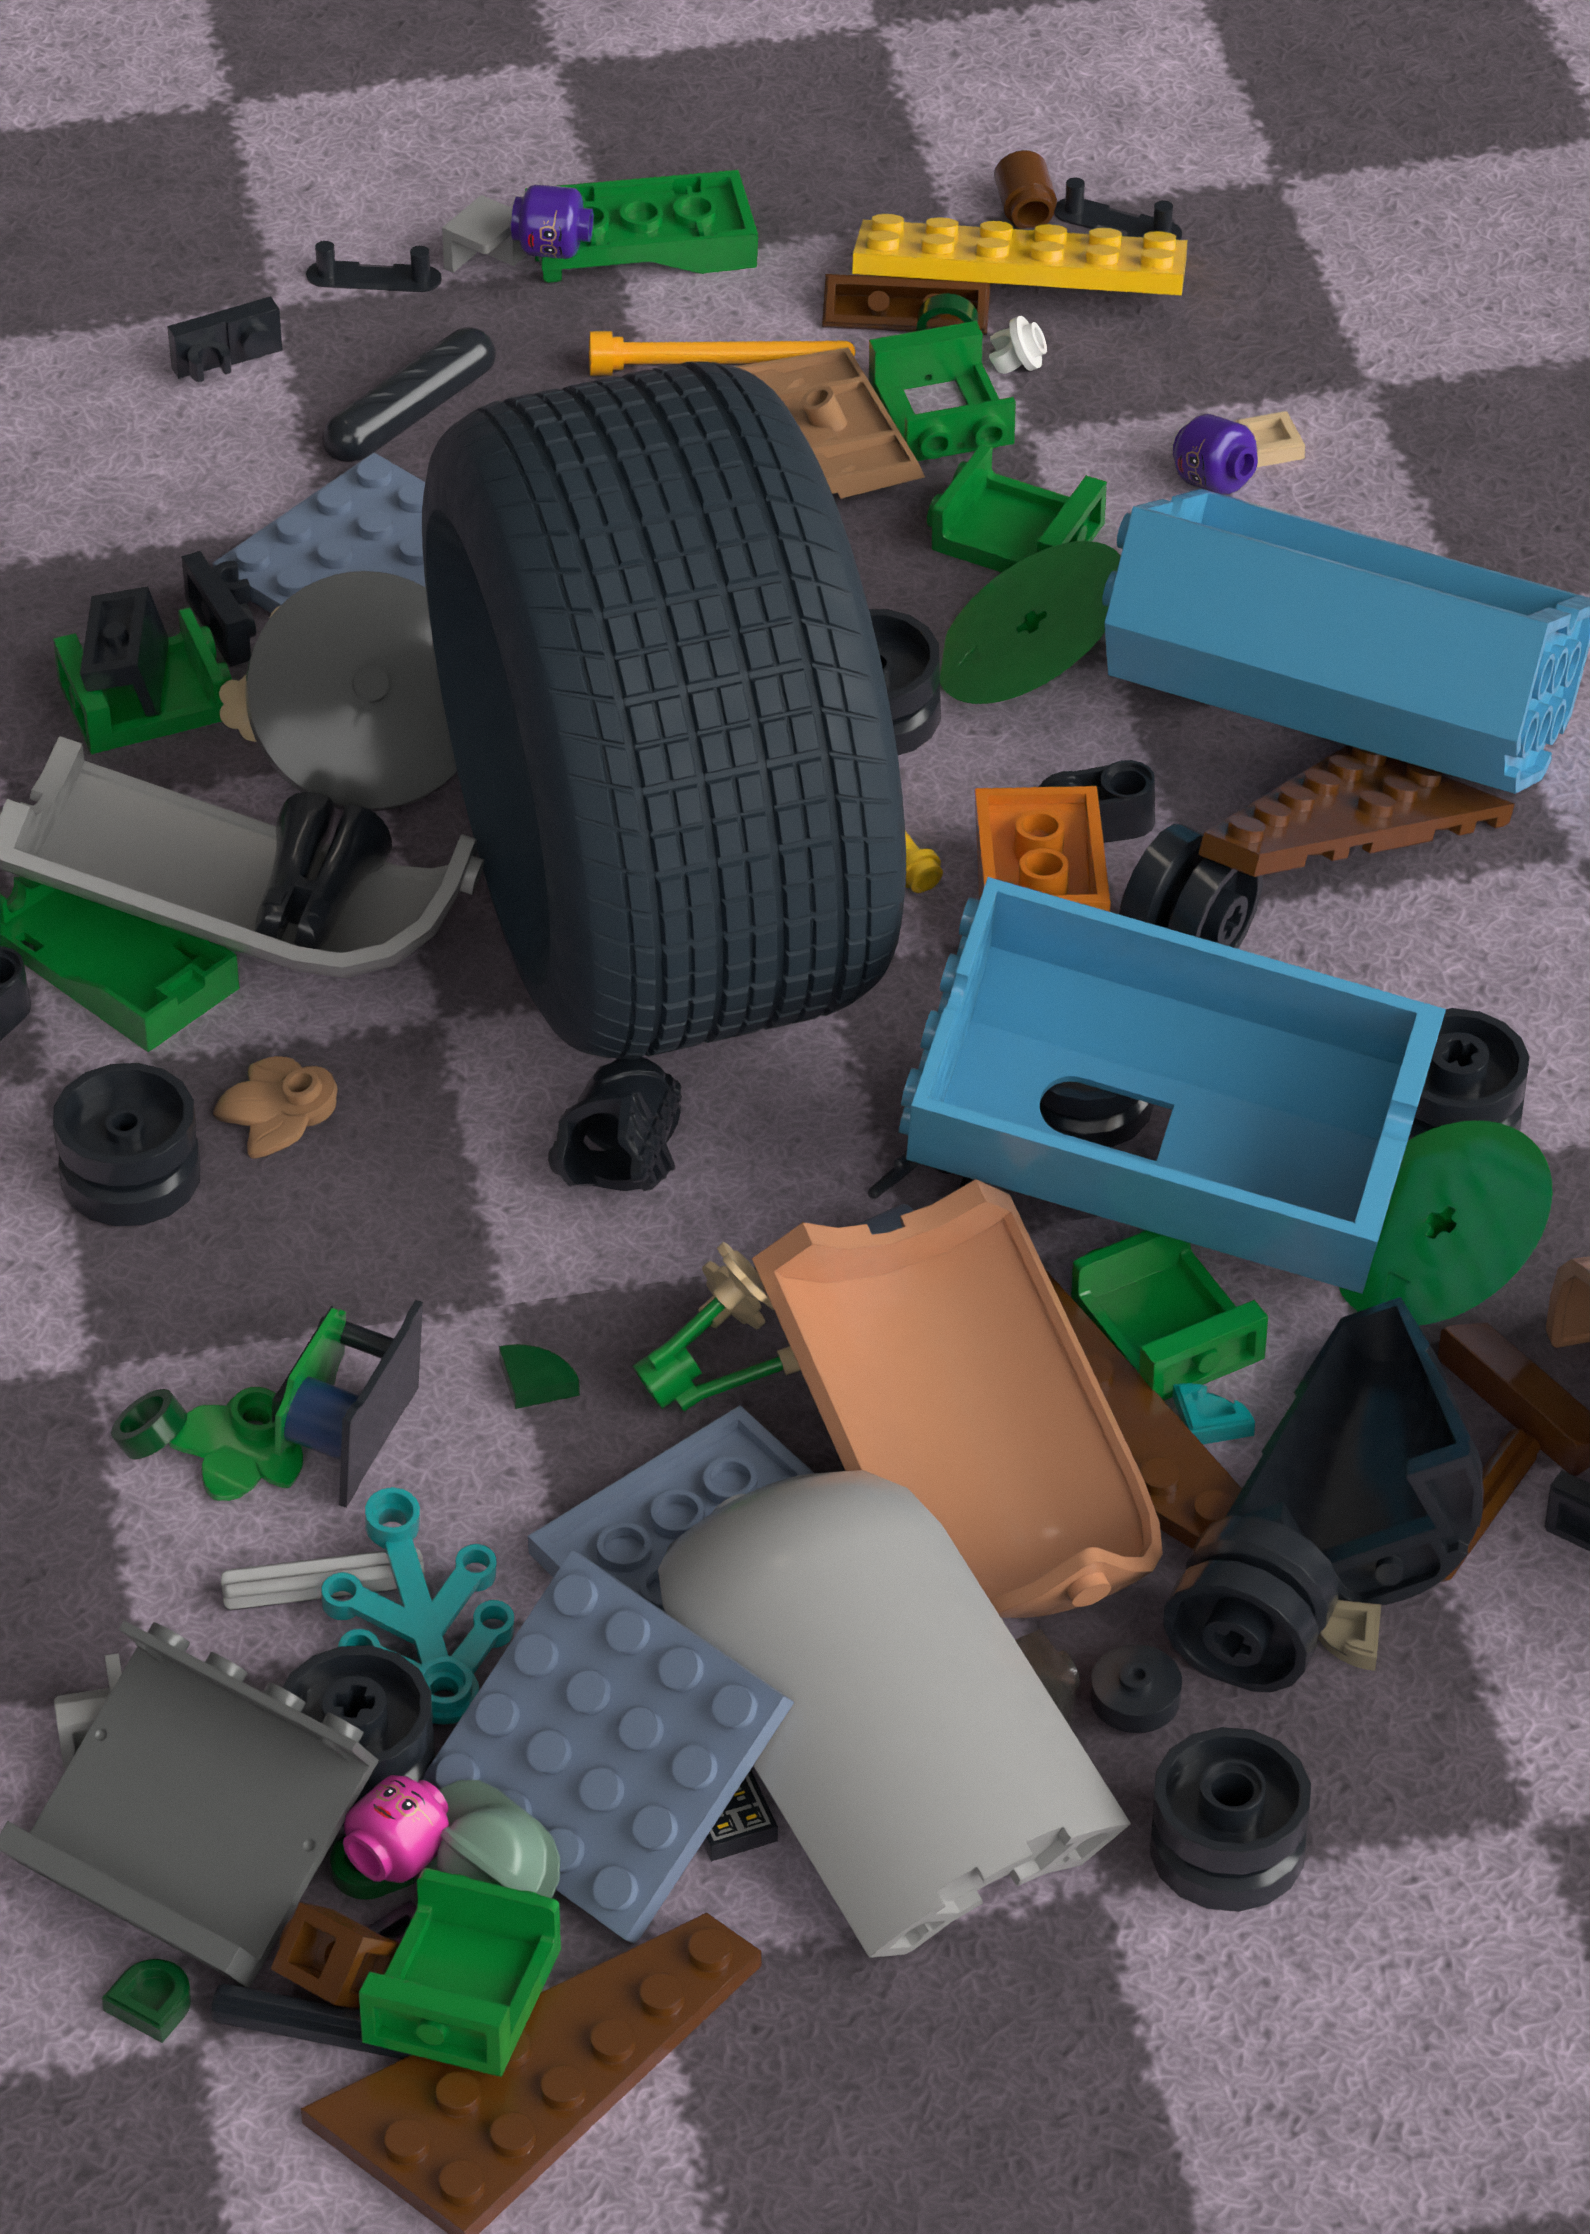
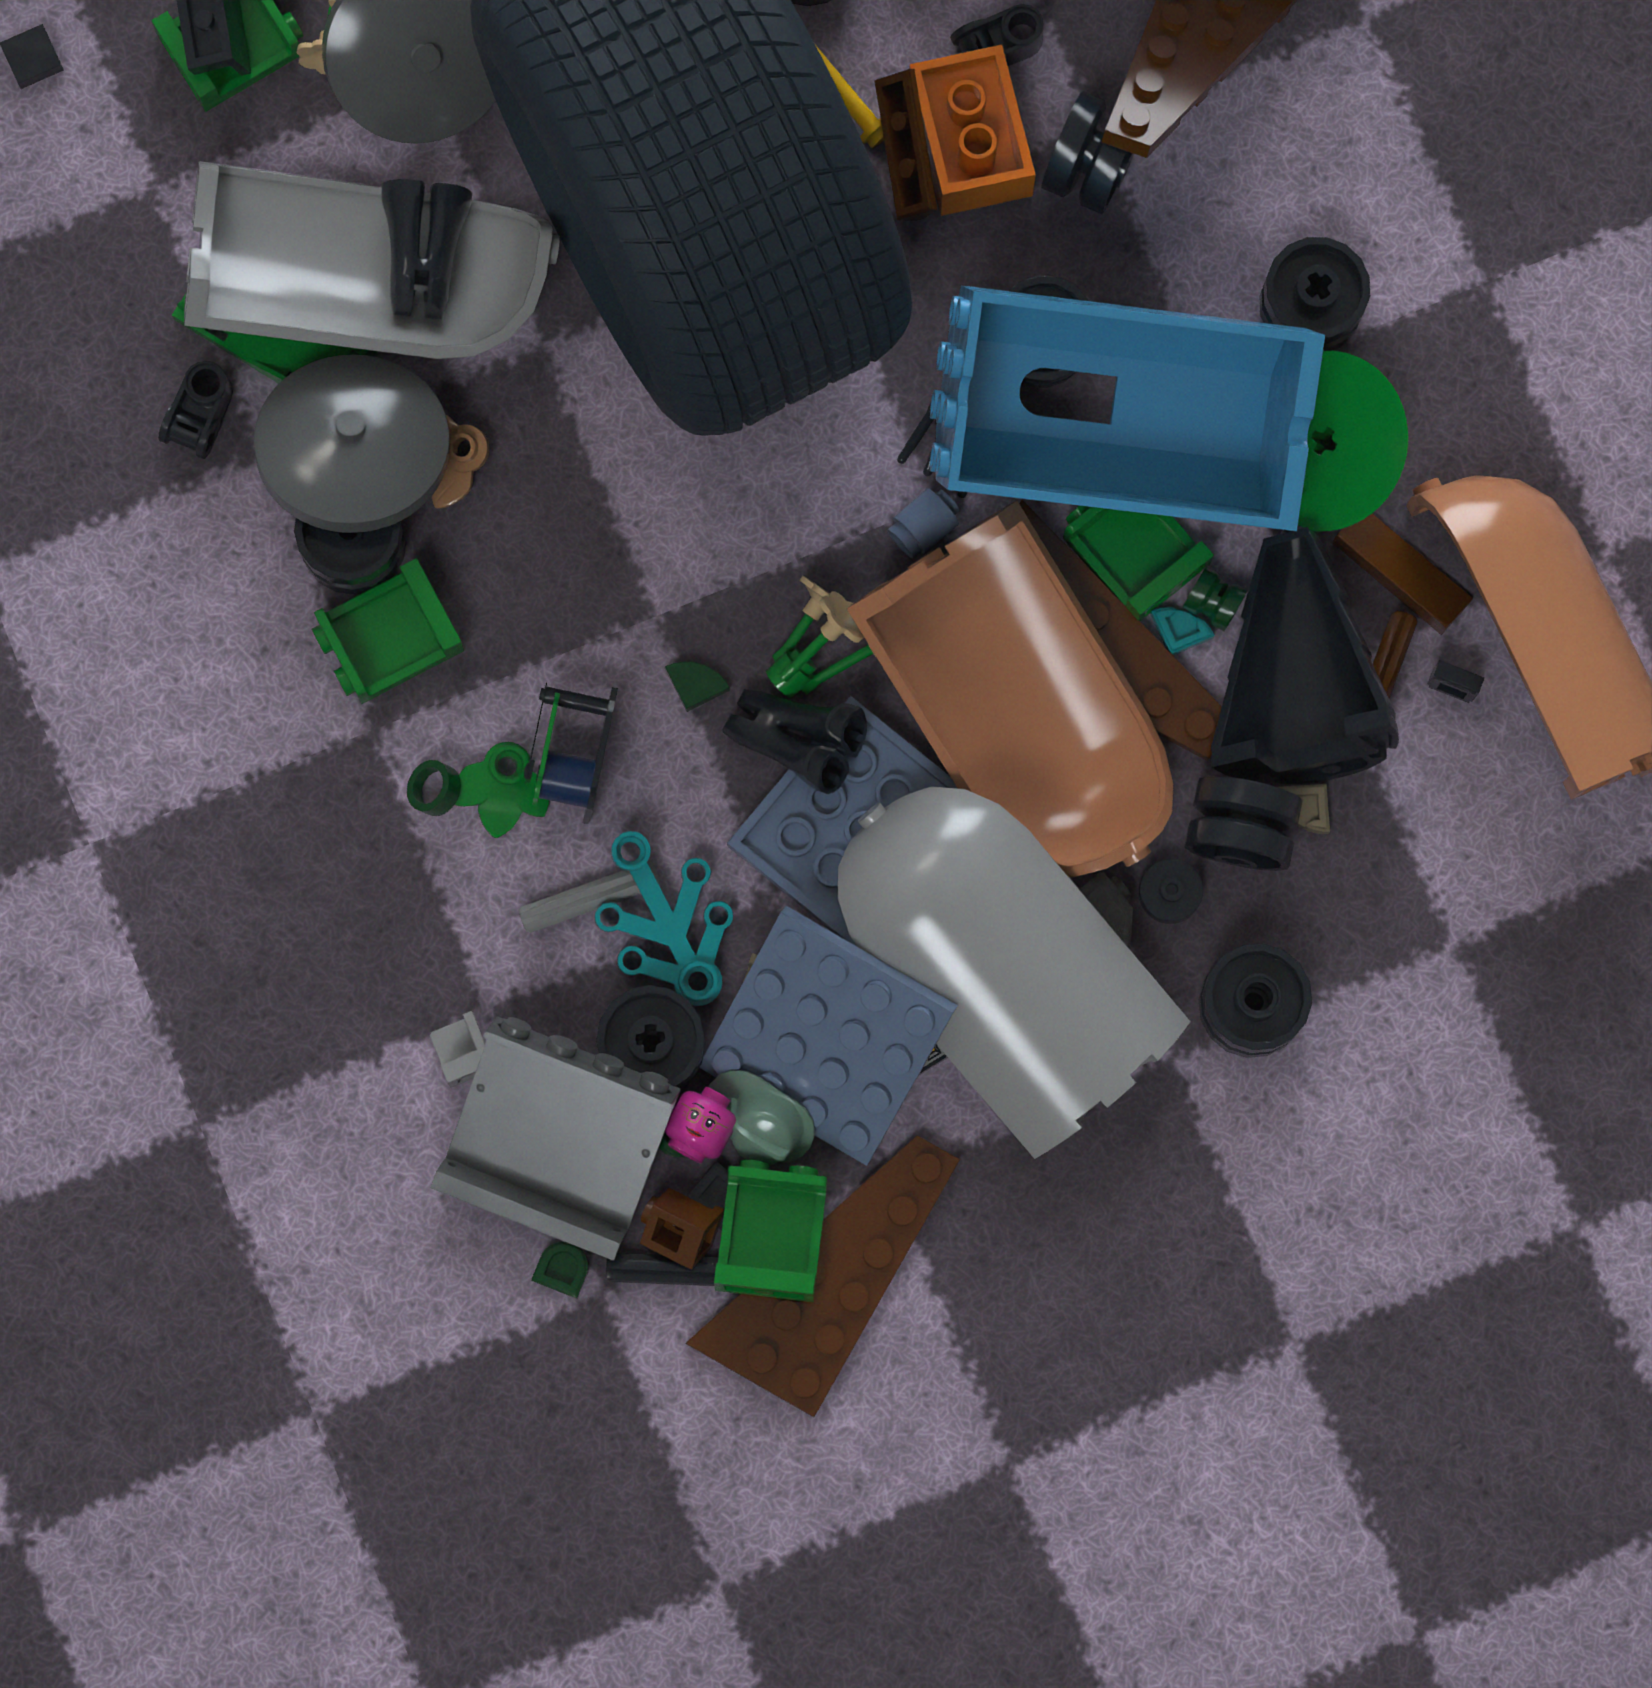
camera: 15 degrees left, 35 degrees up
(145, 1263) = (388, 634): none -> green panel
(158, 1033) = (351, 443): none -> dark grey dish
(630, 1114) = (708, 464): black helmet -> none
(664, 1430) = (835, 726): none -> black piece
(951, 867) = (906, 146): none -> reddish brown slope
(1260, 1377) = (1215, 598): none -> dark green wheel

